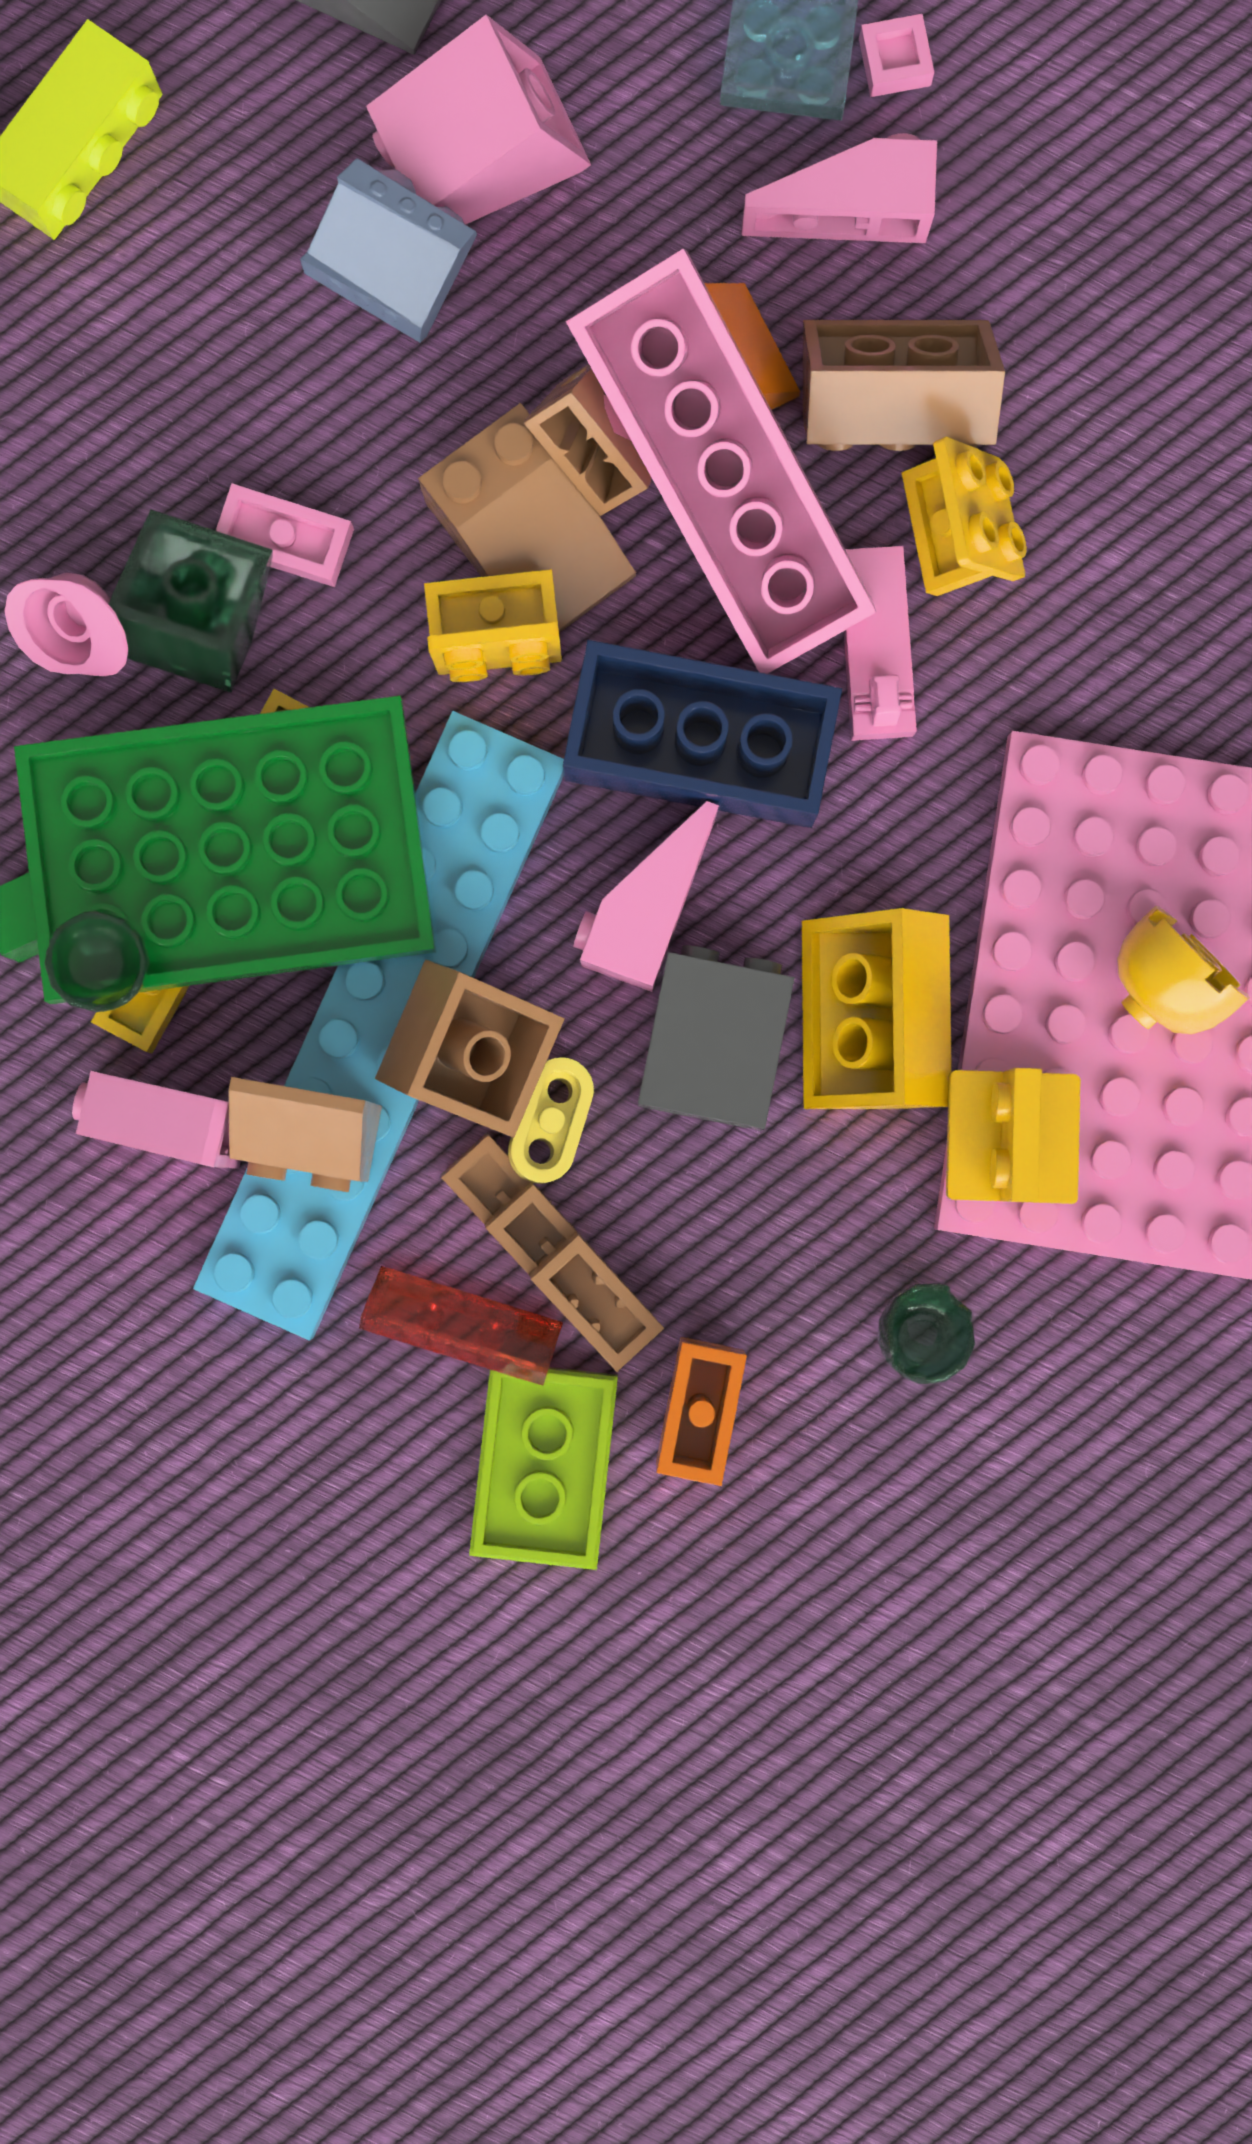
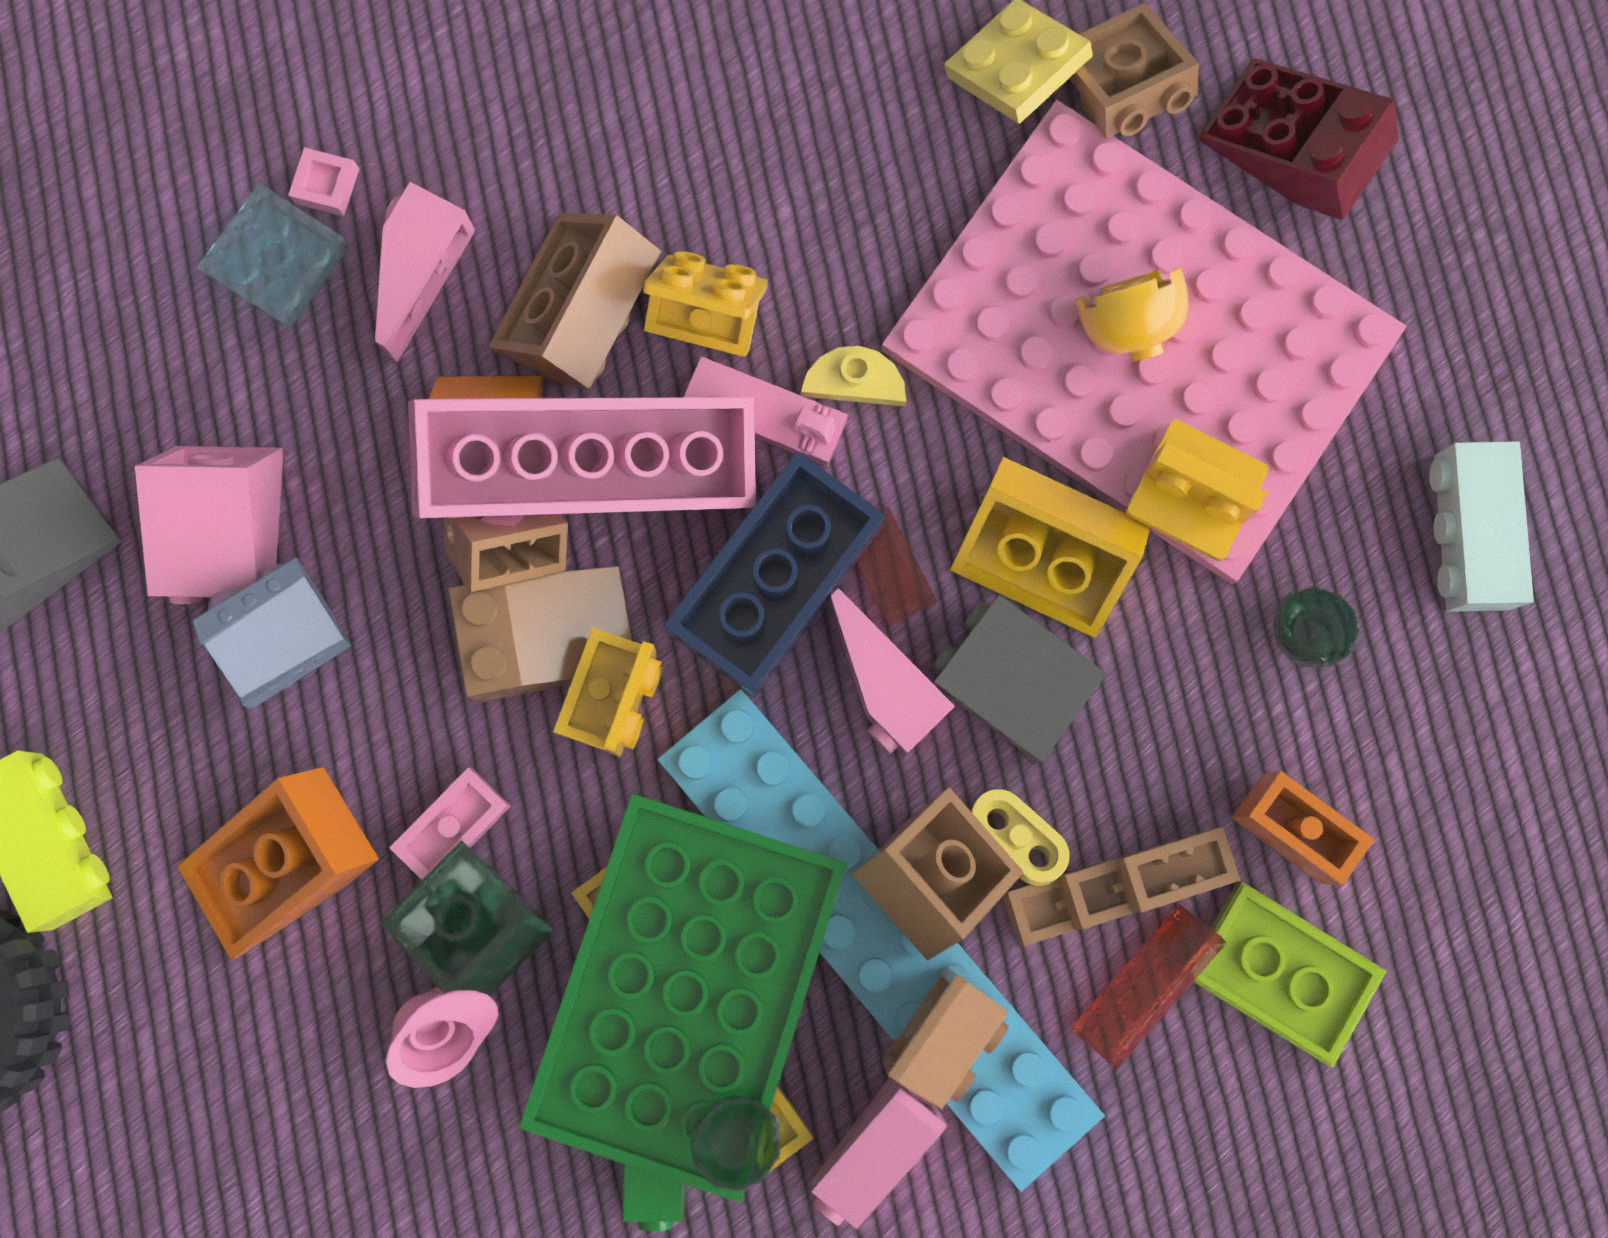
camera: 70 degrees left, 5 degrees down
(167, 379) = (277, 860): none -> orange slope
(769, 863) = (894, 575): none -> clear red tile
(963, 719) = (855, 376): none -> light yellow plate
(1127, 1466) = (1482, 527): none -> light aqua brick

